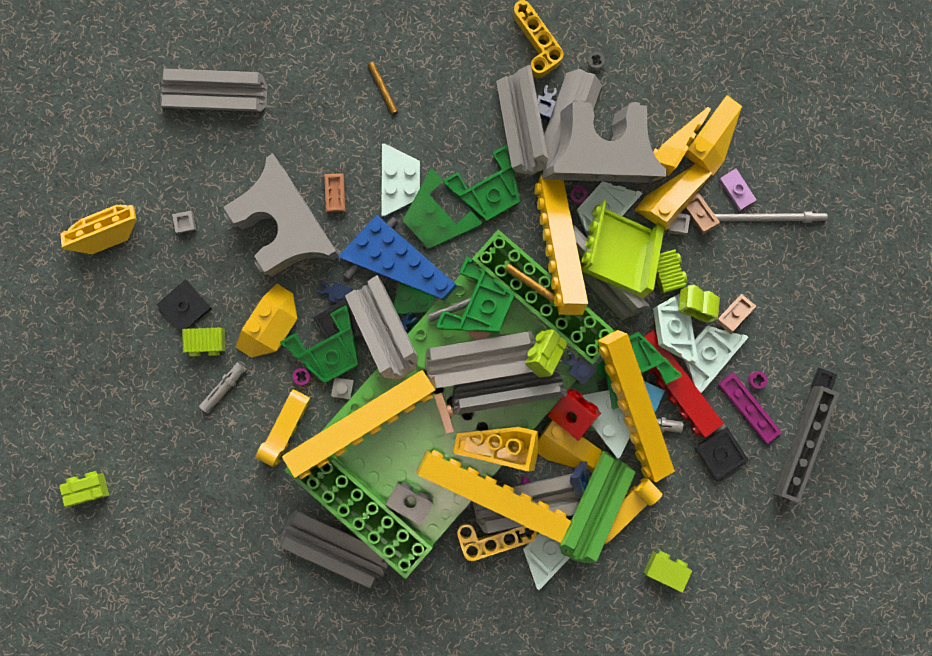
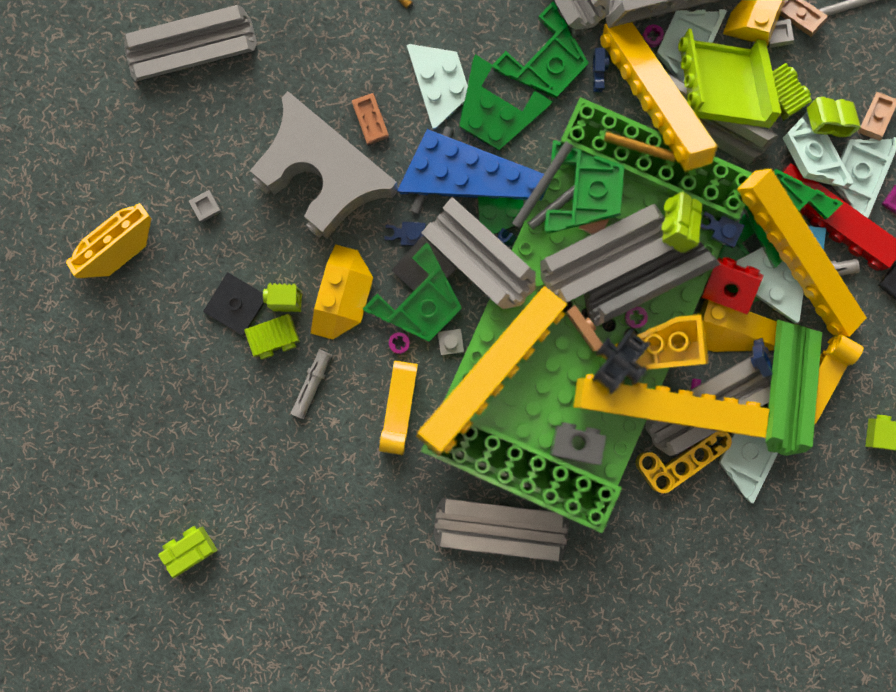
camera: 15 degrees left, 0 degrees up
(220, 313) = (283, 297): none -> lime brick
(447, 289) = (543, 184): none -> dark grey bar
(461, 448) = (621, 361): none -> black axle
(483, 419) = (631, 323): none -> magenta bush
(529, 205) = (600, 64): none -> dark blue plate

